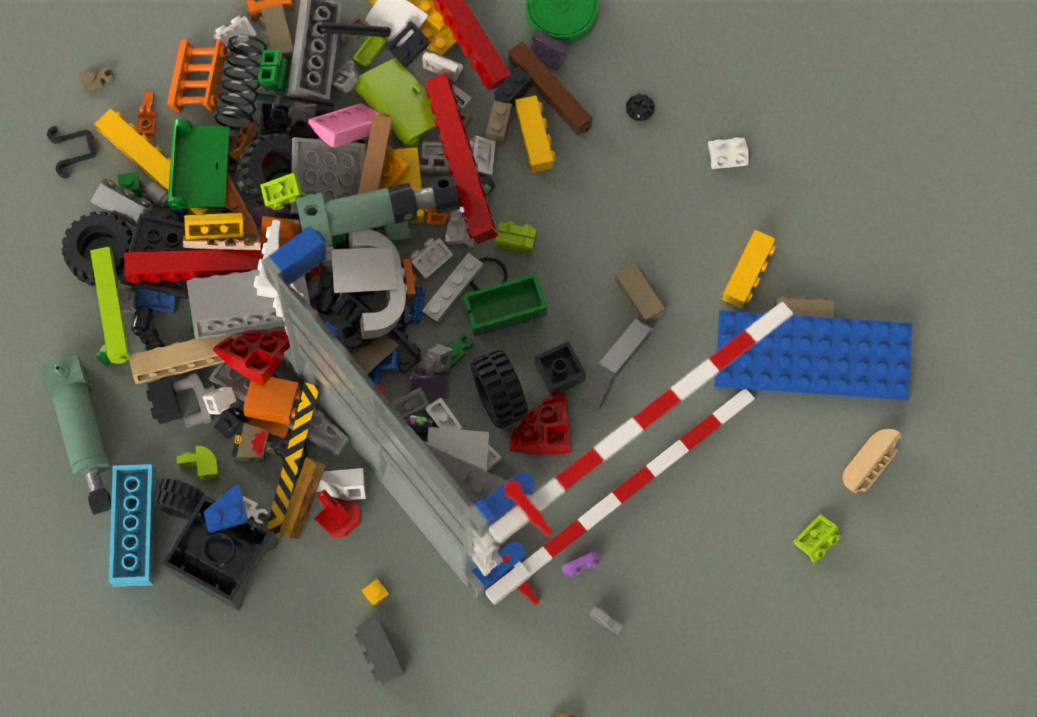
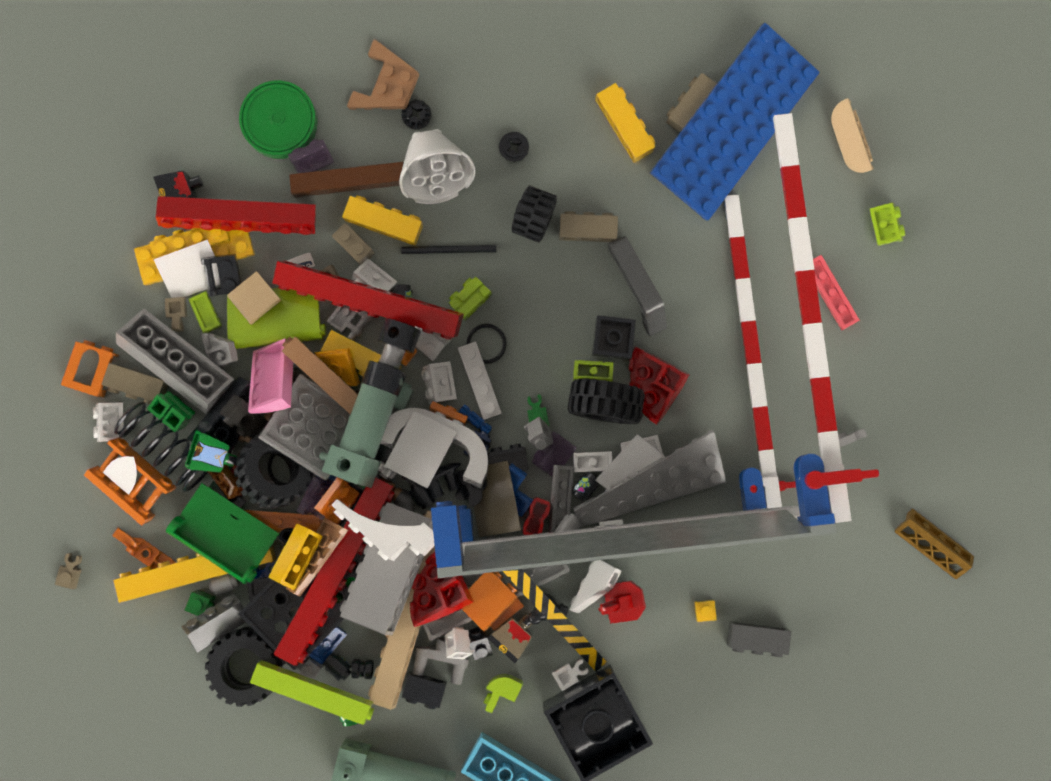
camera: 60 degrees left, 15 degrees up
(56, 140) = (129, 612): black piece -> none
(176, 498) = (526, 732): black tyre -> none
(200, 65) = (122, 472): none -> white sticker
(226, 511) = (573, 702): blue wing -> none
(256, 112) = (208, 454): none -> torso
(281, 191) = (304, 477): lime bracket -> none
(302, 498) = (590, 625): pearl gold fence -> none
(353, 29) = (179, 313): black axle -> none
(404, 76) = (253, 298): none -> tan tile
(441, 65) = (264, 257): white bracket -> none
(505, 305) = (526, 346): green piece -> none
(514, 87) = (328, 210): black brick -> none
(523, 369) = (593, 370): none -> lime brick
(547, 200) = (448, 249): none -> black piece
(573, 568) = (790, 420): medium lavender plate -> none
(600, 142) = (434, 169): none -> white cone
(619, 240) = (533, 213): none -> black wheel
(651, 74) = (393, 84): none -> medium nougat wing
(663, 189) = (515, 138): none -> black gear
(723, 527) = (833, 295): none -> coral plate
(728, 153) = (508, 68): white bracket -> none

